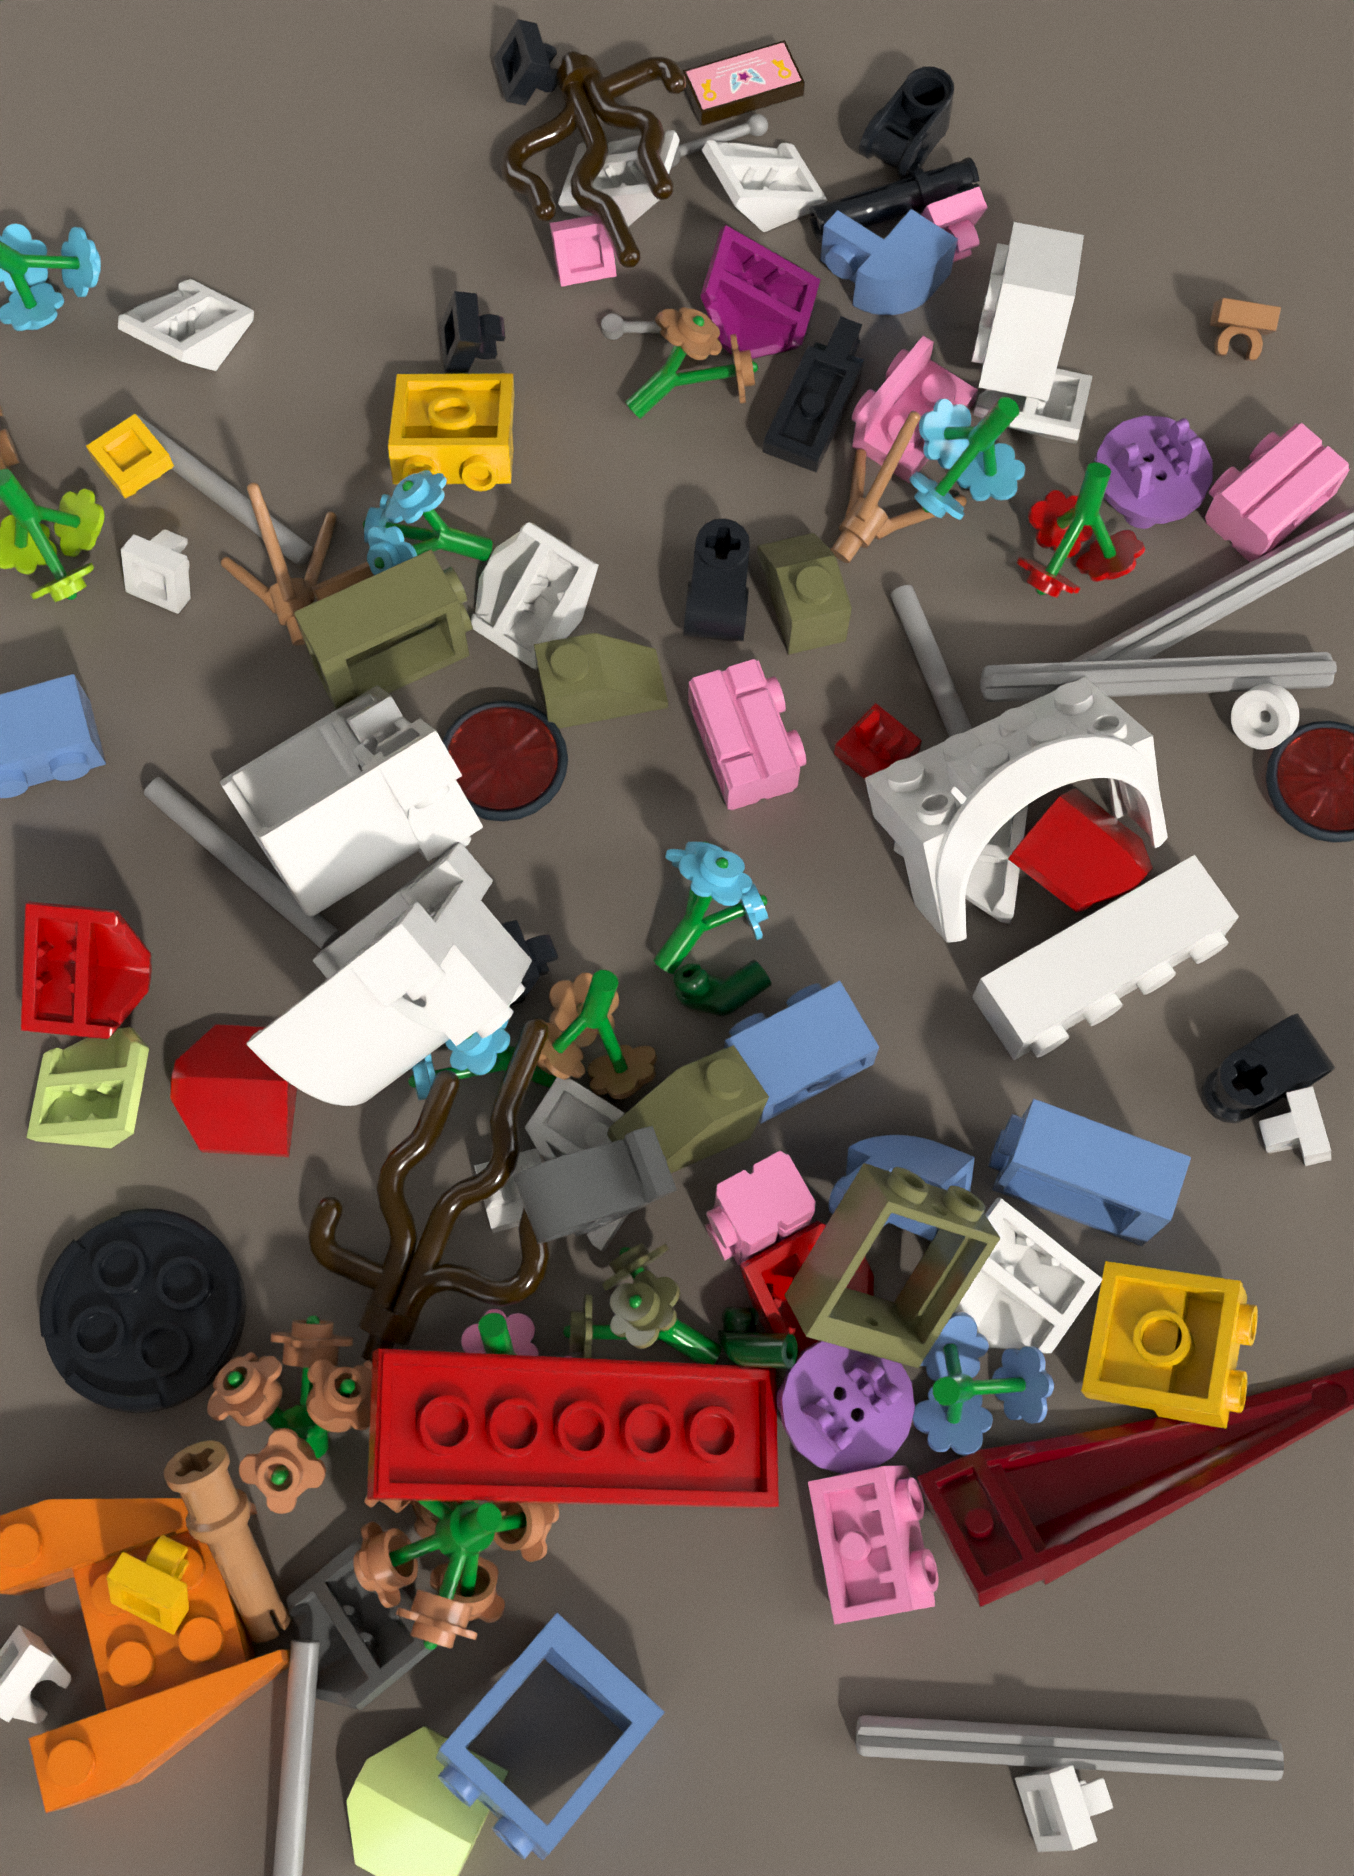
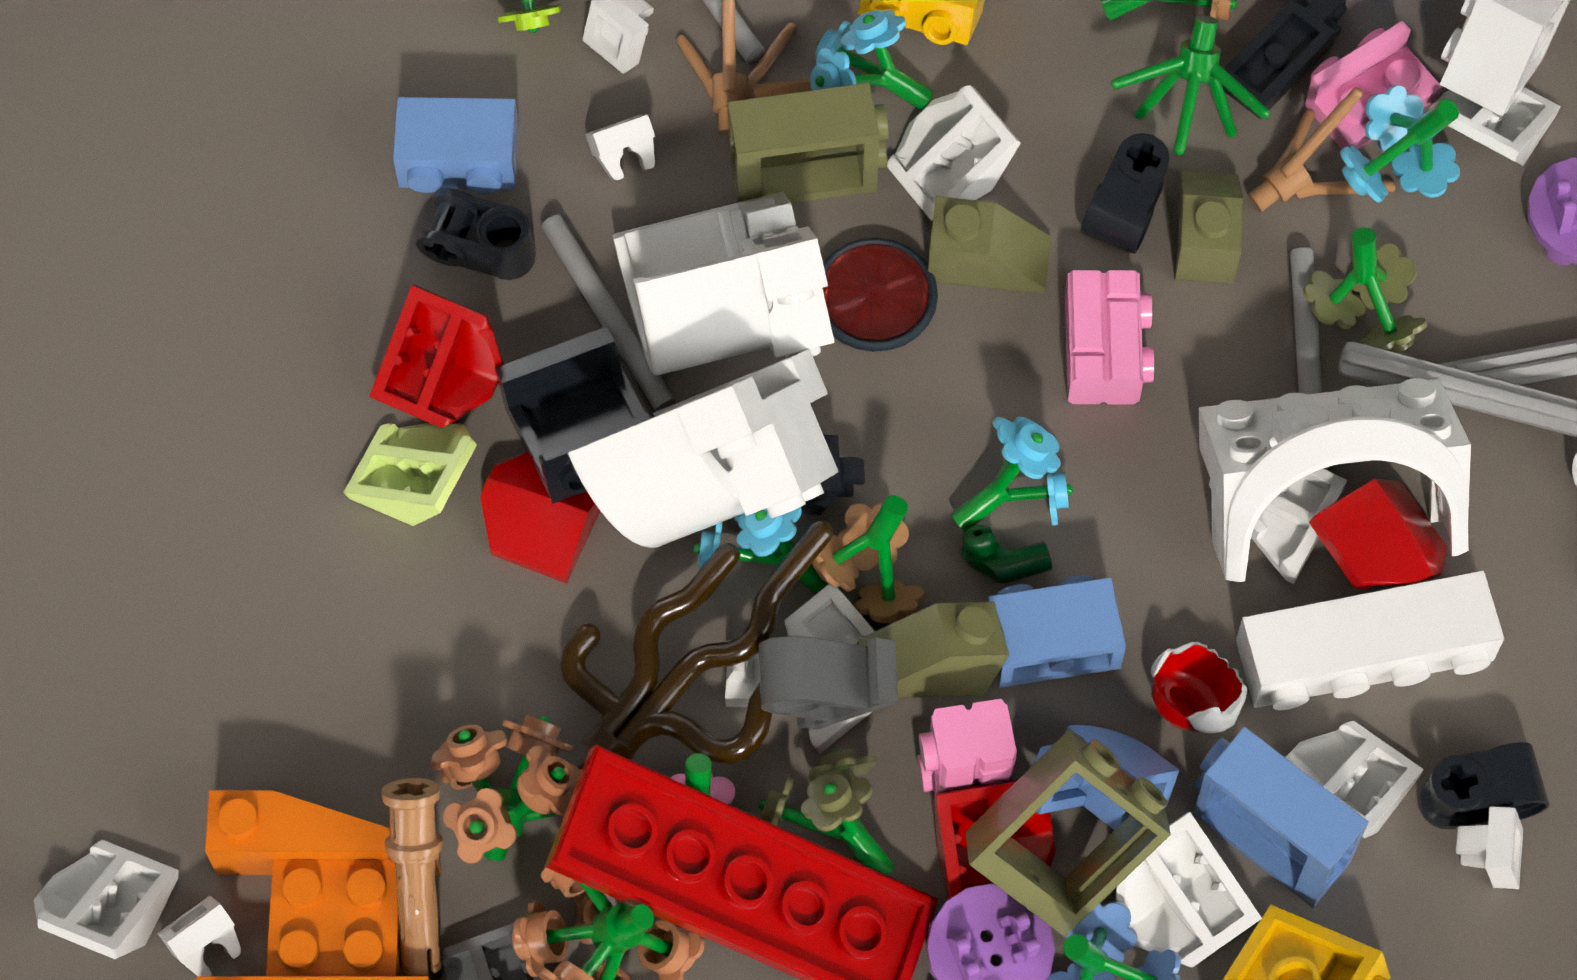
camera: 20 degrees right, 5 degrees down
(70, 822) = (468, 230): none -> black piece
(143, 1311) = (397, 671): black tile -> none
(152, 1587) = (338, 886): yellow tile -> none
(186, 686) = (608, 144): none -> white tile
(235, 974) = (566, 402): none -> black panel
(745, 435) = (1197, 64): none -> green plant
(755, 1348) = (921, 871): dark green arm -> none
(876, 743) = (1226, 379): red tile -> none
(958, 1064) = (1197, 689): none -> red hair
(987, 595) = (1378, 278): none -> olive plant
(1072, 520) = (1479, 239): red plant -> none
(1137, 1095) = (1358, 771): none -> white slope

